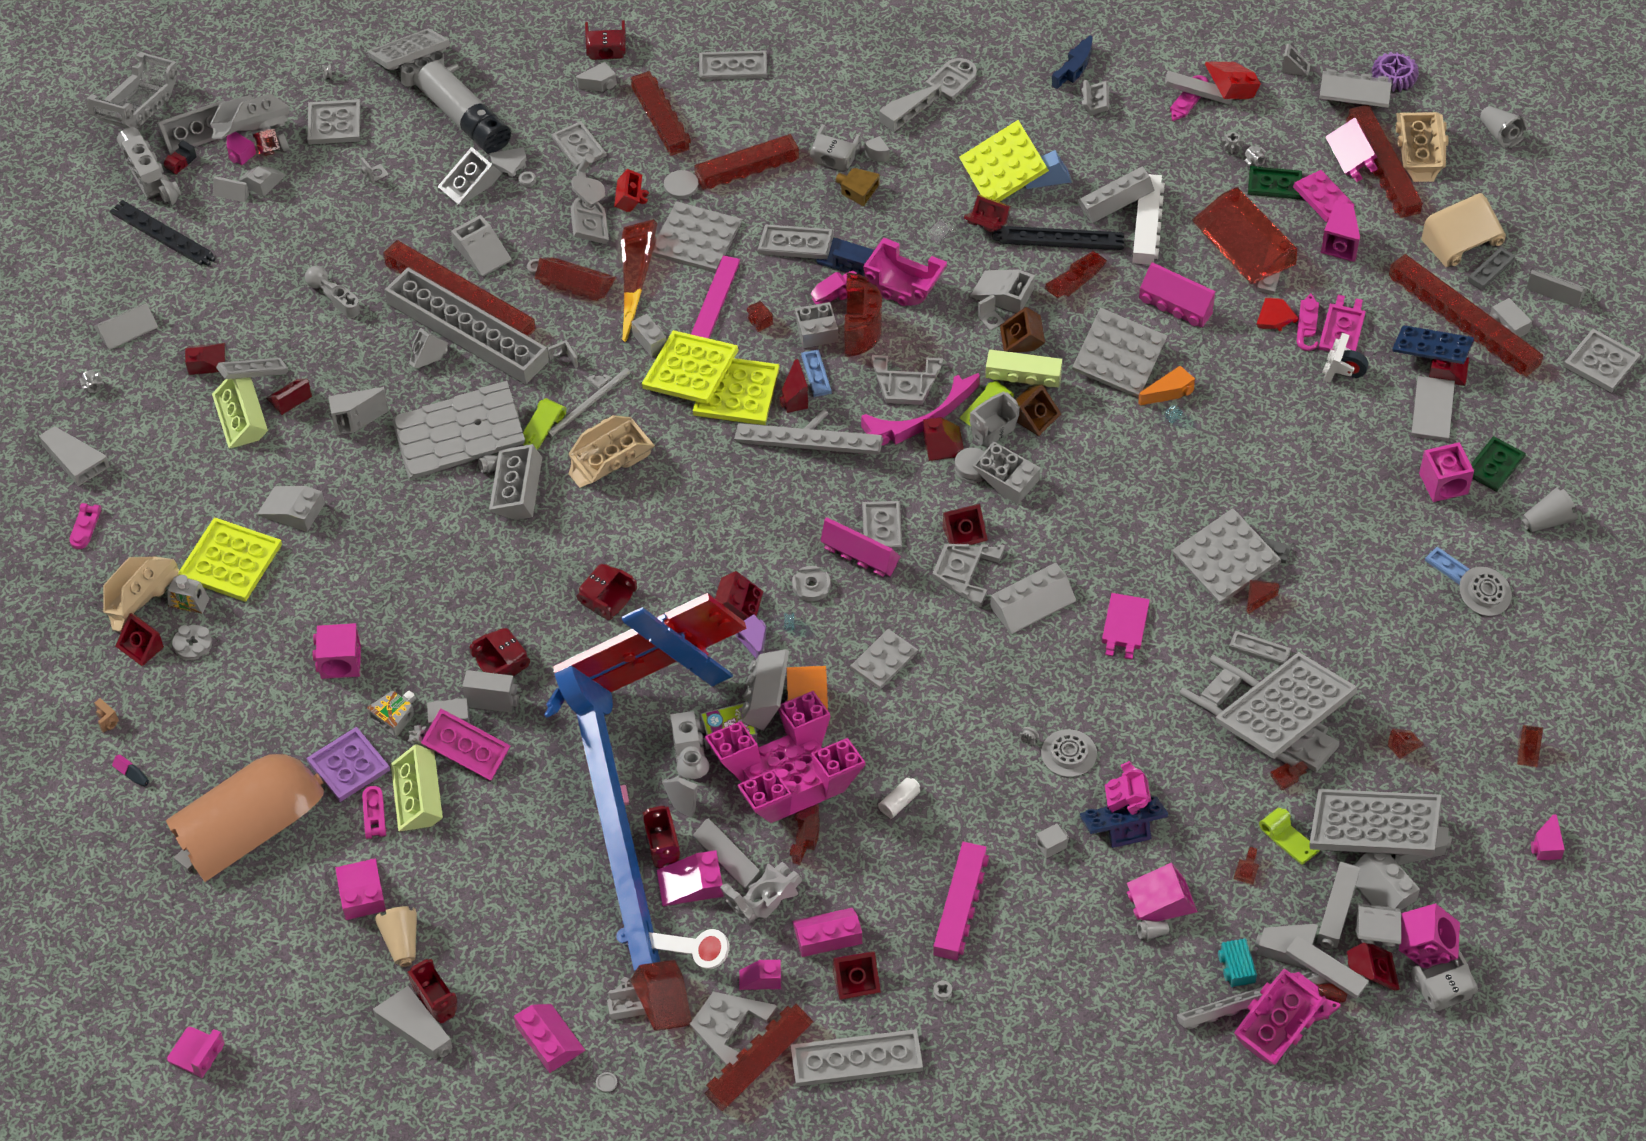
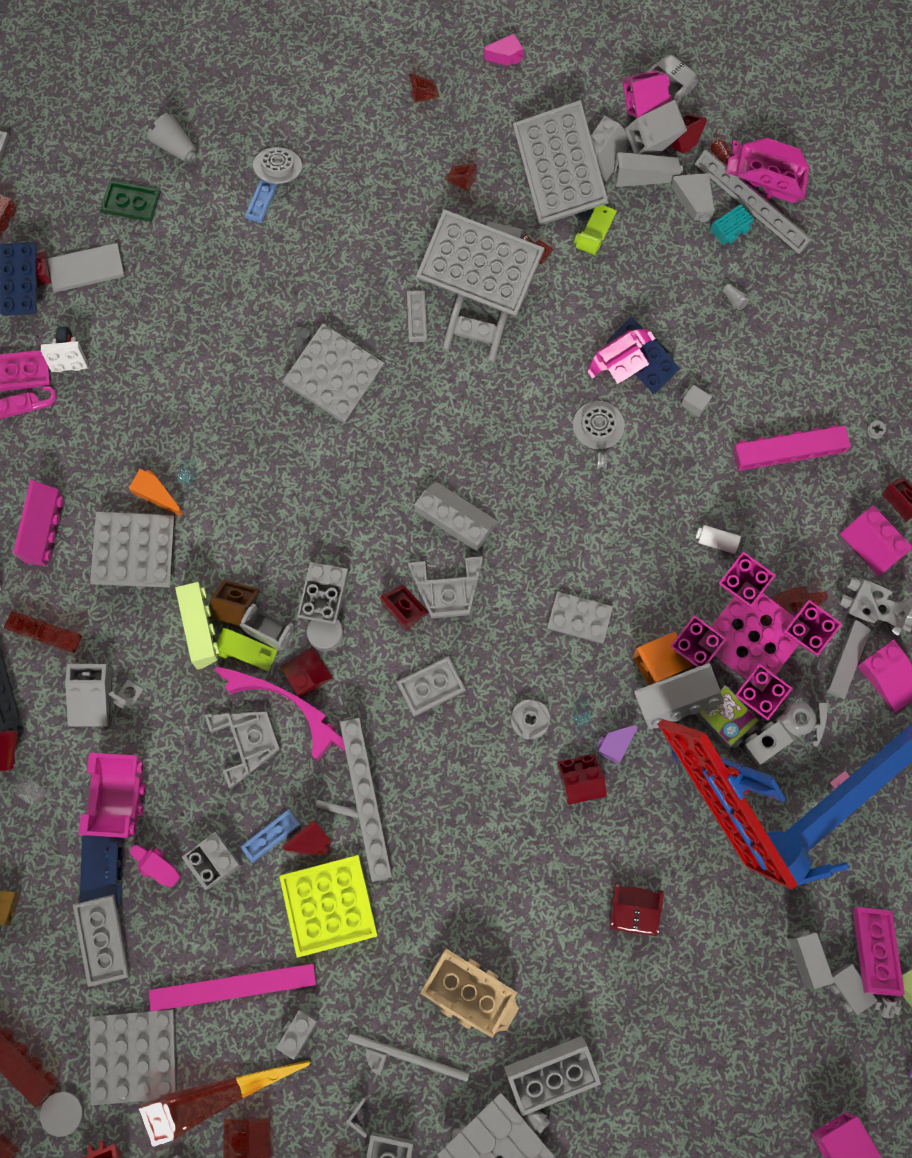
camera: 115 degrees left, 20 degrees up
(392, 711) = (873, 1049): torso -> none
(500, 653) = (759, 975): dark red piece -> none
(542, 421) = (460, 1091): lime door -> none
(661, 840) = (877, 714): dark red piece -> none
(690, 367) = (324, 965): neon yellow plate -> none
(760, 316) = (221, 929): clear red brick -> none
(859, 547) = (474, 688): dark pink slope -> none
(863, 315) = (182, 804): clear red cylinder -> none
(1022, 332) = (139, 653): reddish brown slope -> none
(1125, 623) = (443, 430): dark pink tile -> none
(1161, 895) = (705, 298): dark pink slope -> none
(1247, 870) = (641, 250): clear red plate -> none
(1260, 593) = (364, 333): clear red slope -> none
(1275, 314) = (22, 433): red slope -> none
(1327, 967) = (710, 155): light grey tile -> none
(1446, 472) = (166, 224): dark pink brick -> none

